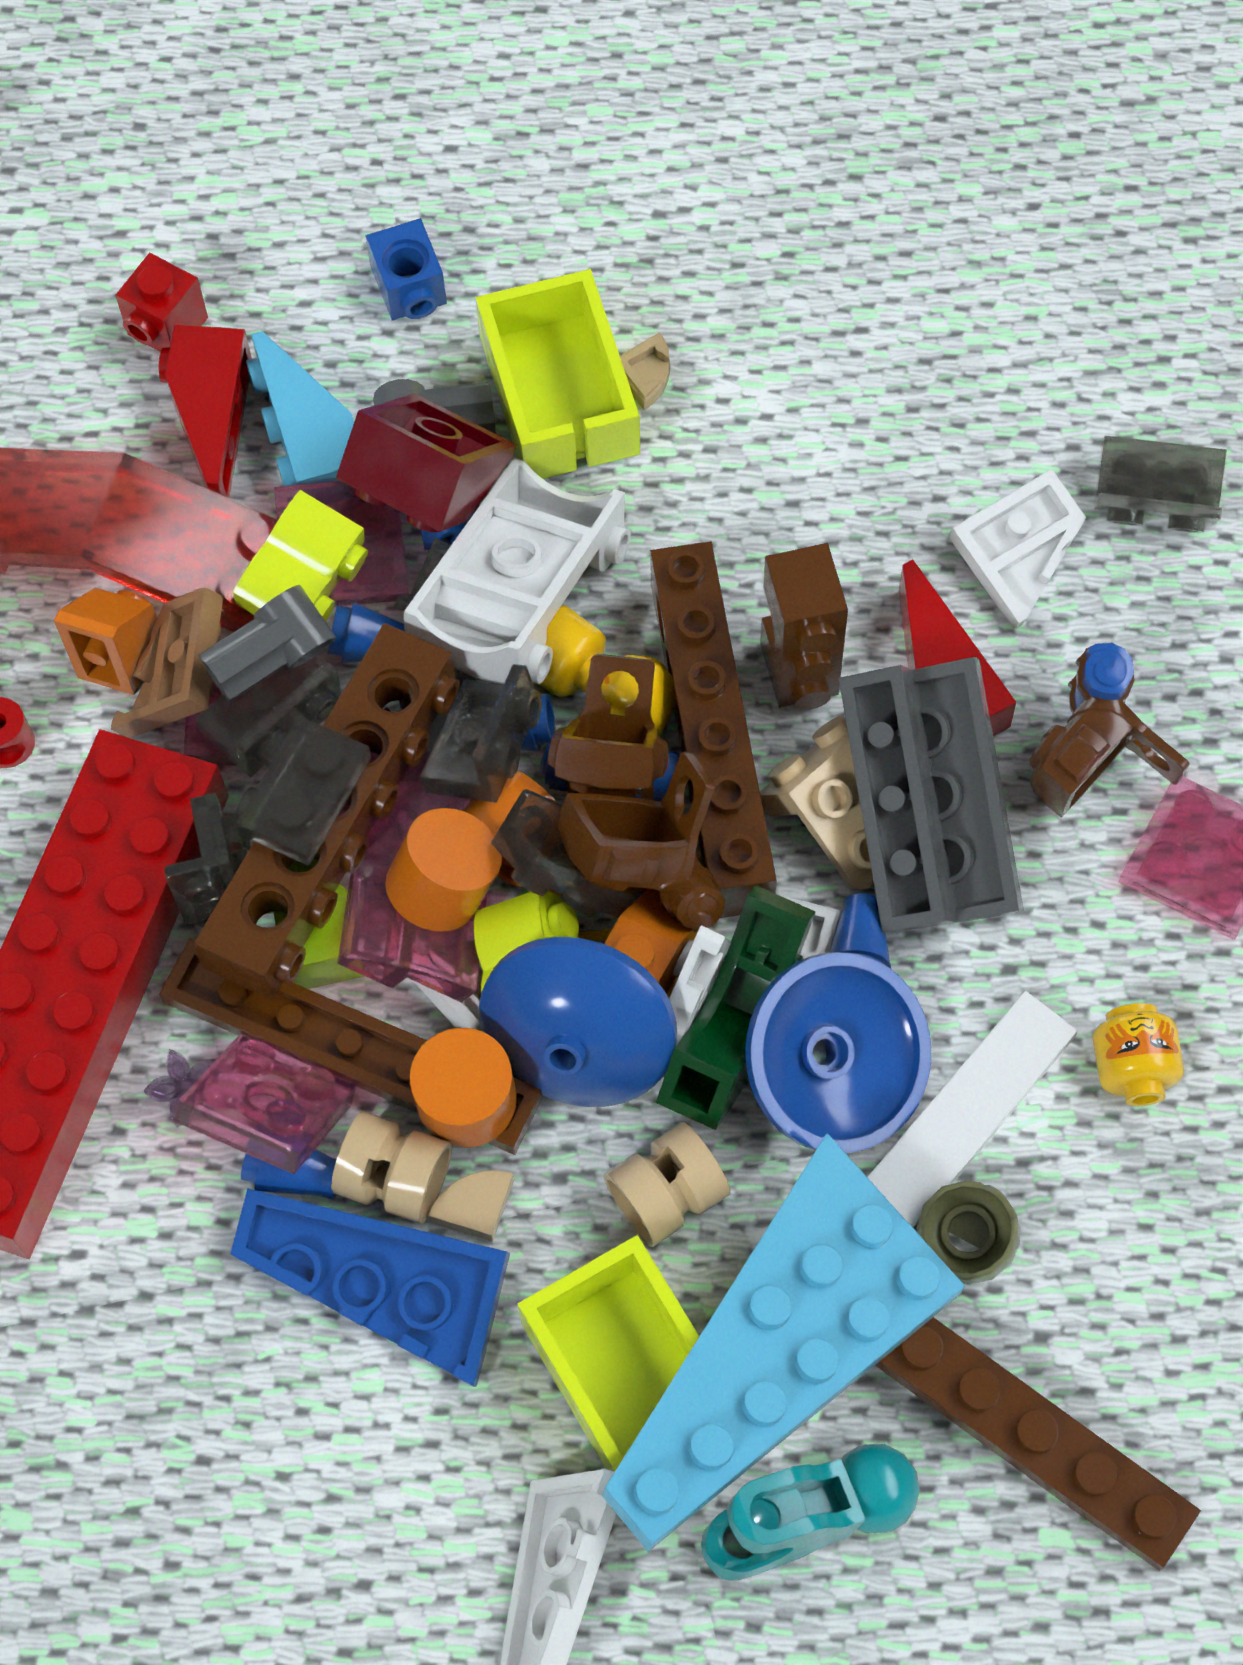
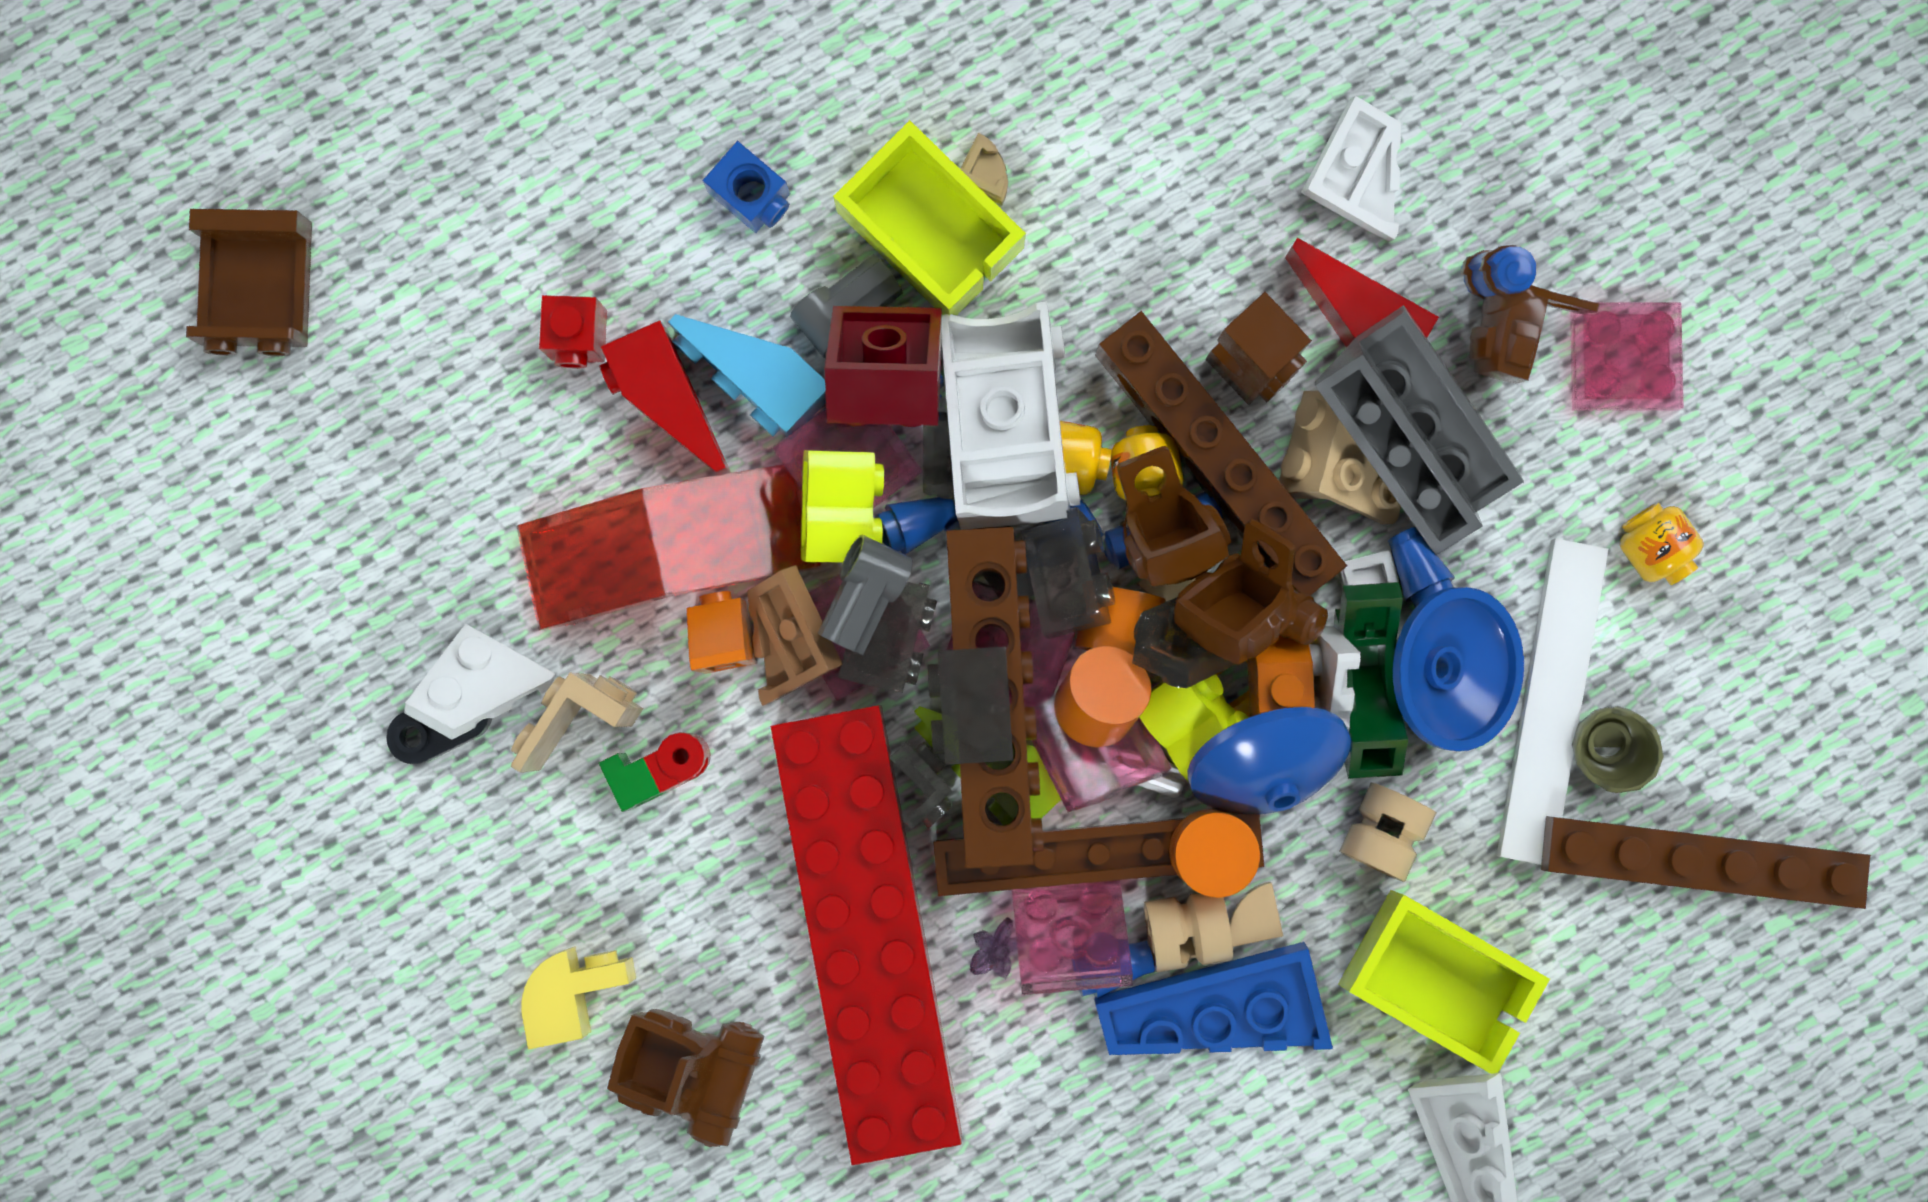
camera: 30 degrees left, 20 degrees up
(804, 1320) = (1552, 900): medium azure wing -> none
(811, 1508) = (1620, 1011): teal piece -> none
(1160, 482) = (1440, 61): clear smoke bracket -> none

